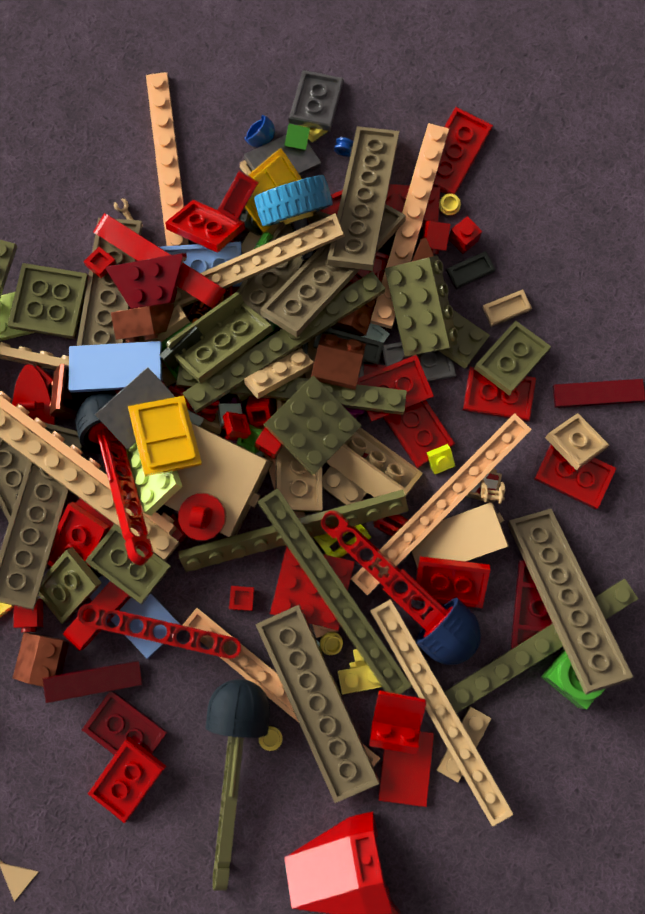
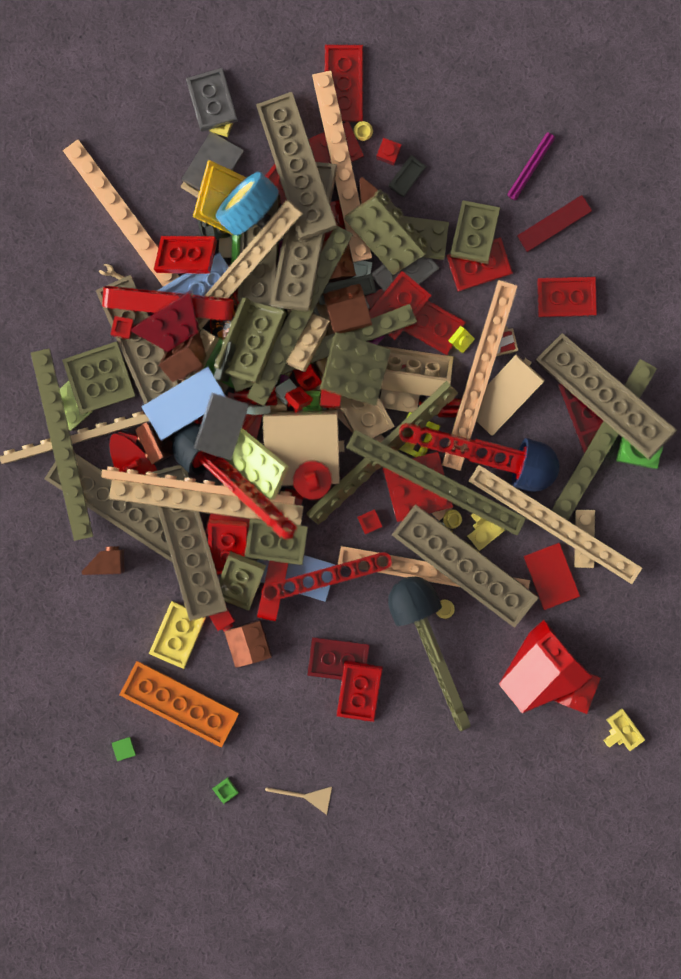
camera: 30 degrees left, 10 degrees up
(91, 681) = (296, 637): dark red tile -> none
(164, 435) = (254, 436): yellow piece -> none
(238, 196) = (201, 221): red tile -> none
(260, 132) = (183, 151): blue hair -> none
(297, 136) = (215, 141): bright green tile -> none
(343, 146) = (255, 127): blue bush -> none
(397, 722) = (529, 549): red bracket -> none
(436, 235) = (366, 165): red brick -> none
(453, 579) = (517, 425): red plate -> none
(484, 492) = (506, 349): tan piece -> none
(507, 308) = (450, 192): tan tile -> none
(577, 441) = (556, 271): tan tile -> none
(603, 324) = (531, 166): none -> magenta axle

